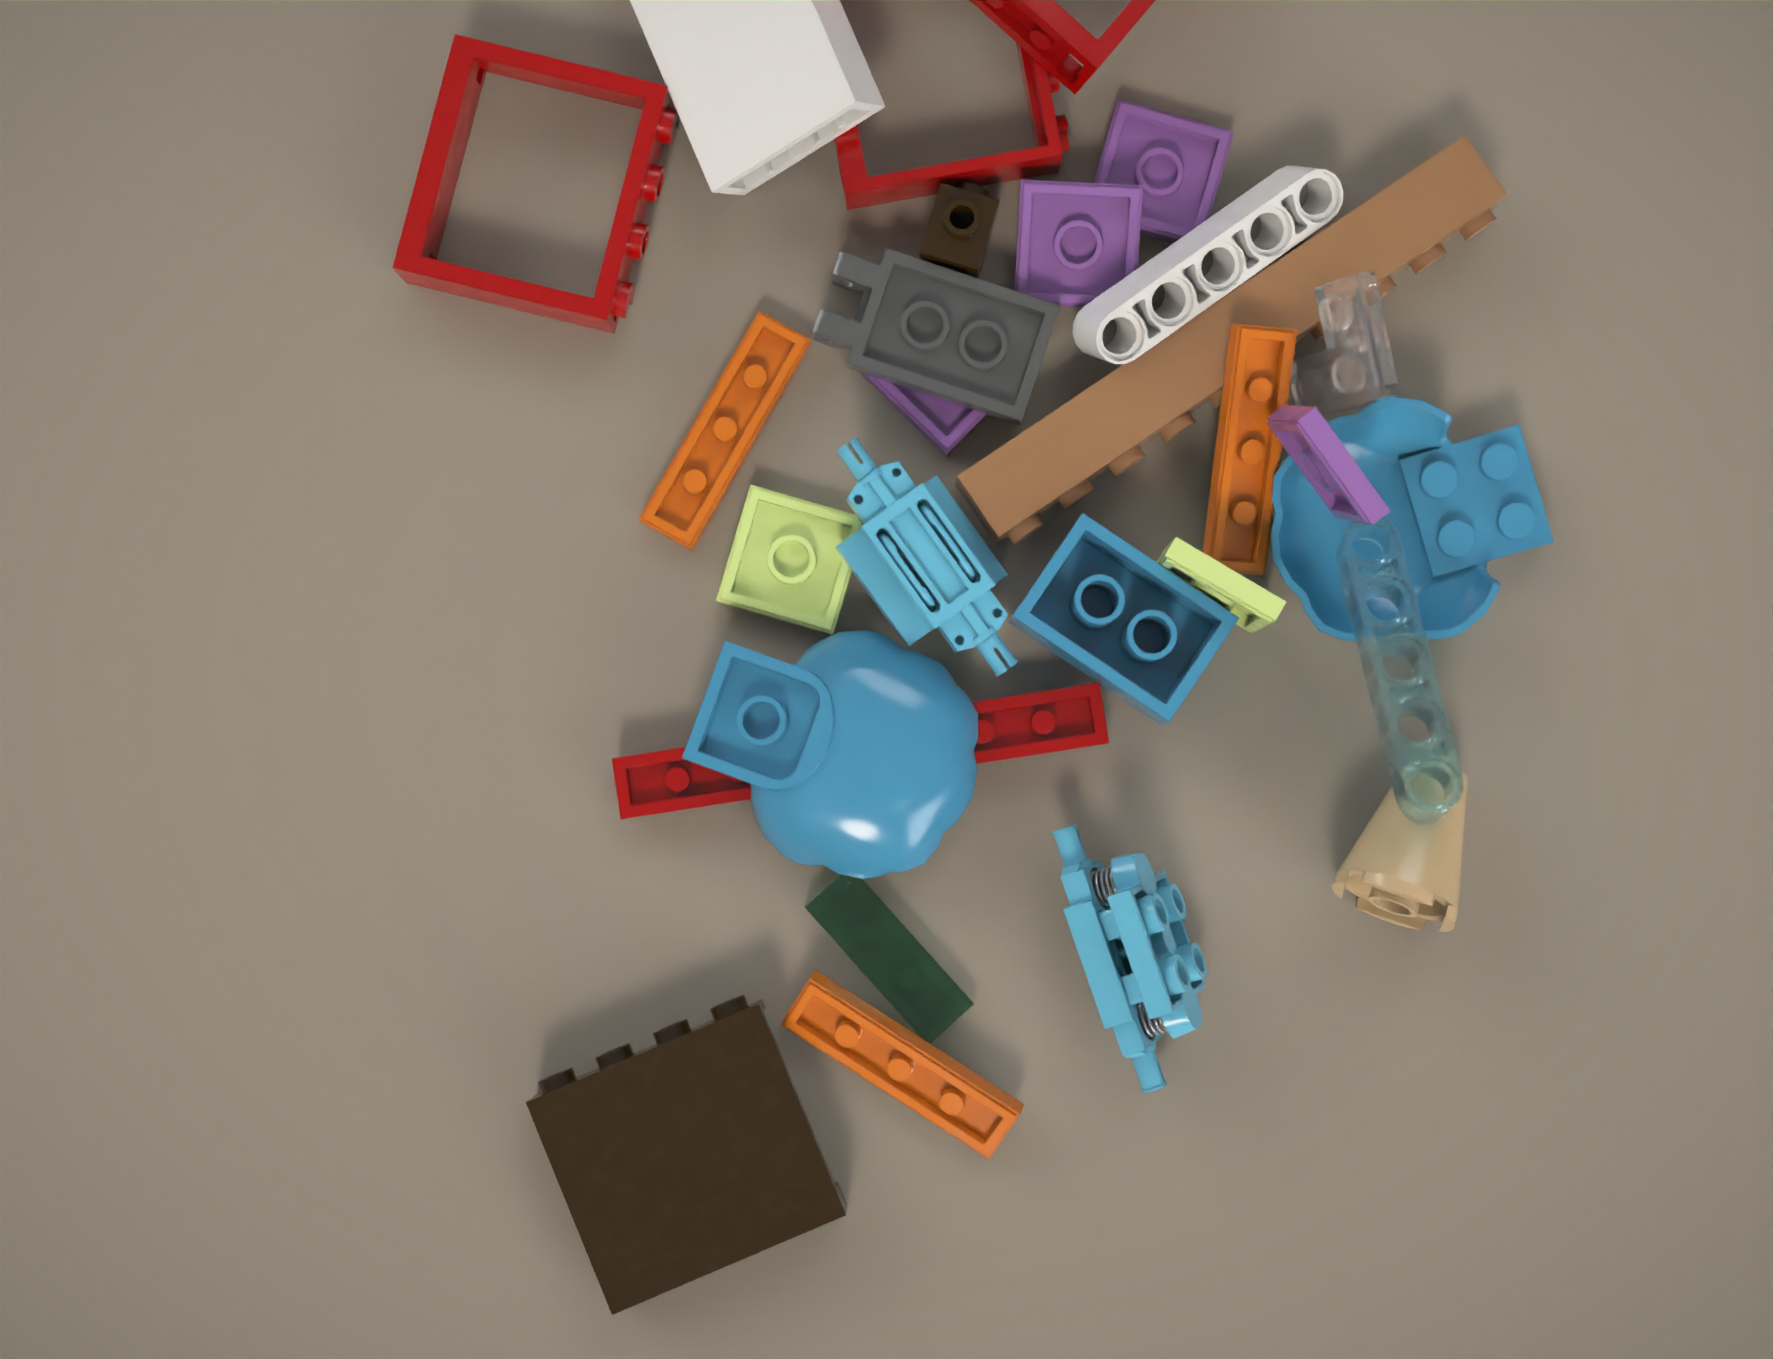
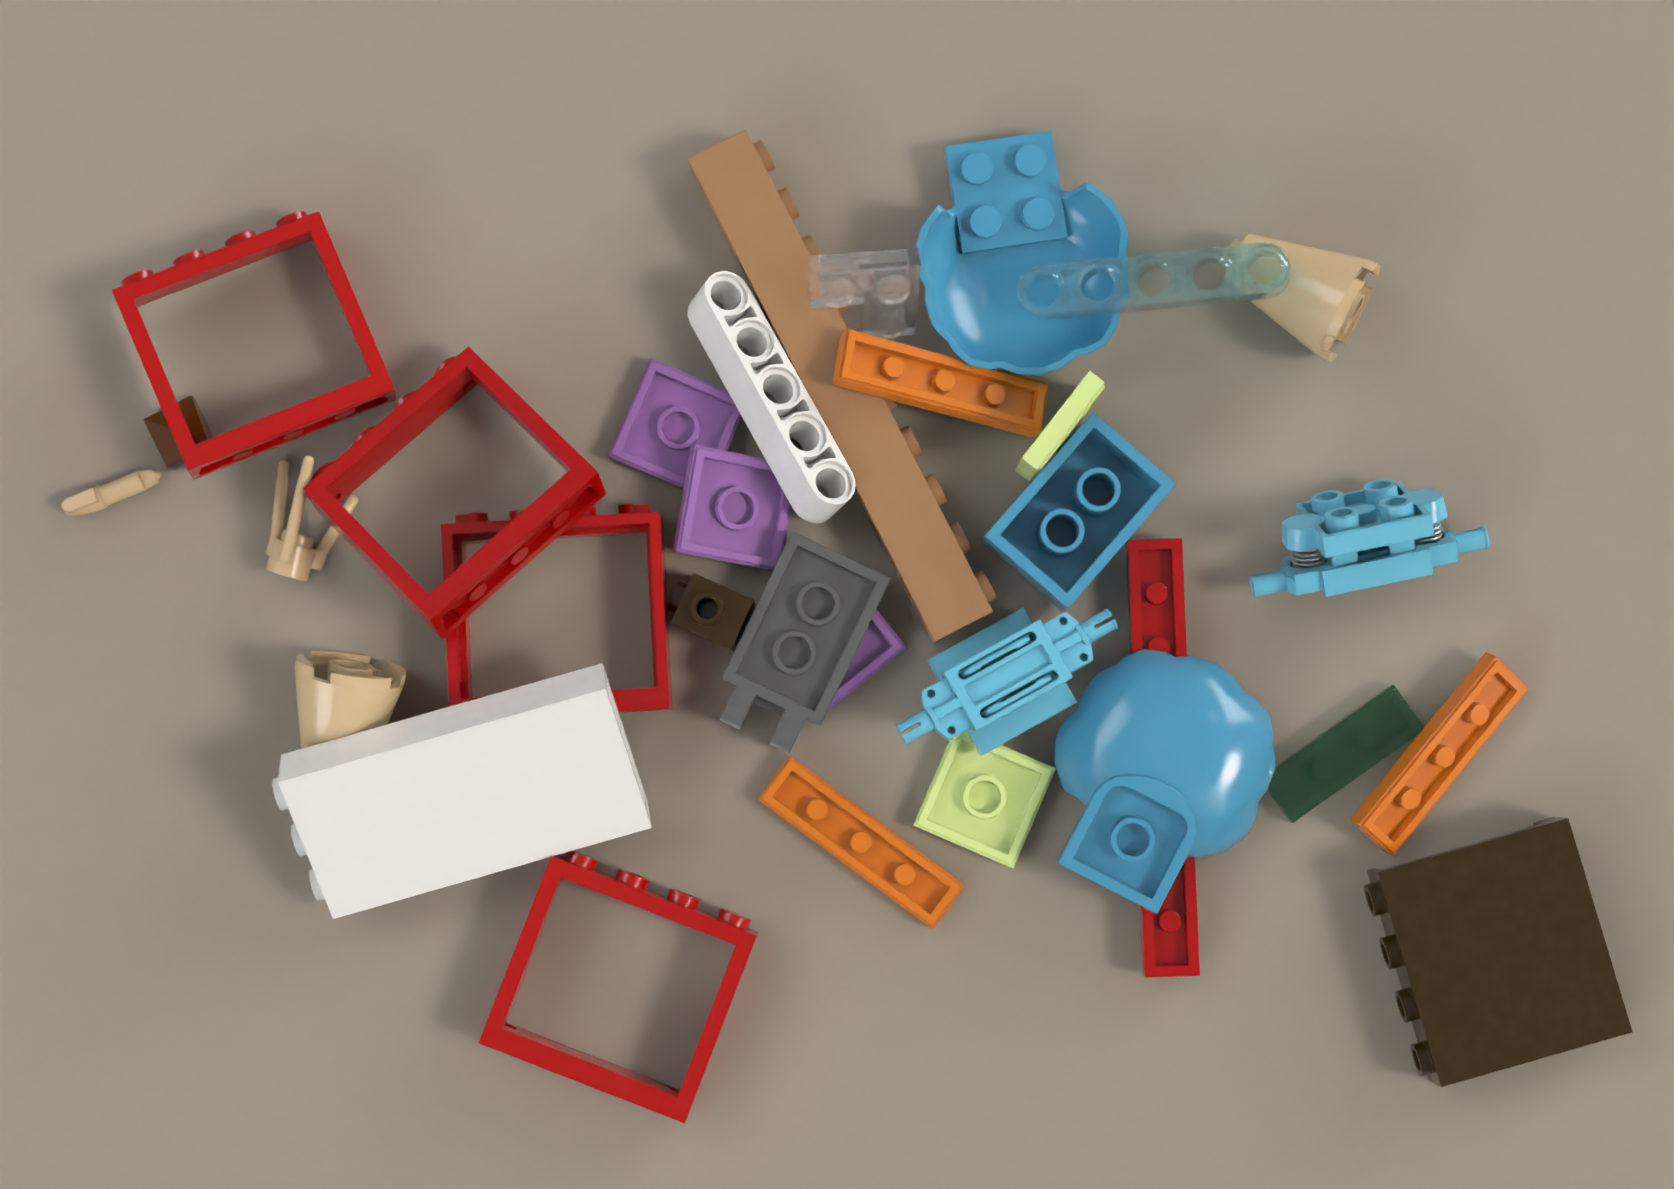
camera: 85 degrees left, 0 degrees up
(1327, 464) = (975, 320): medium lavender tile -> none

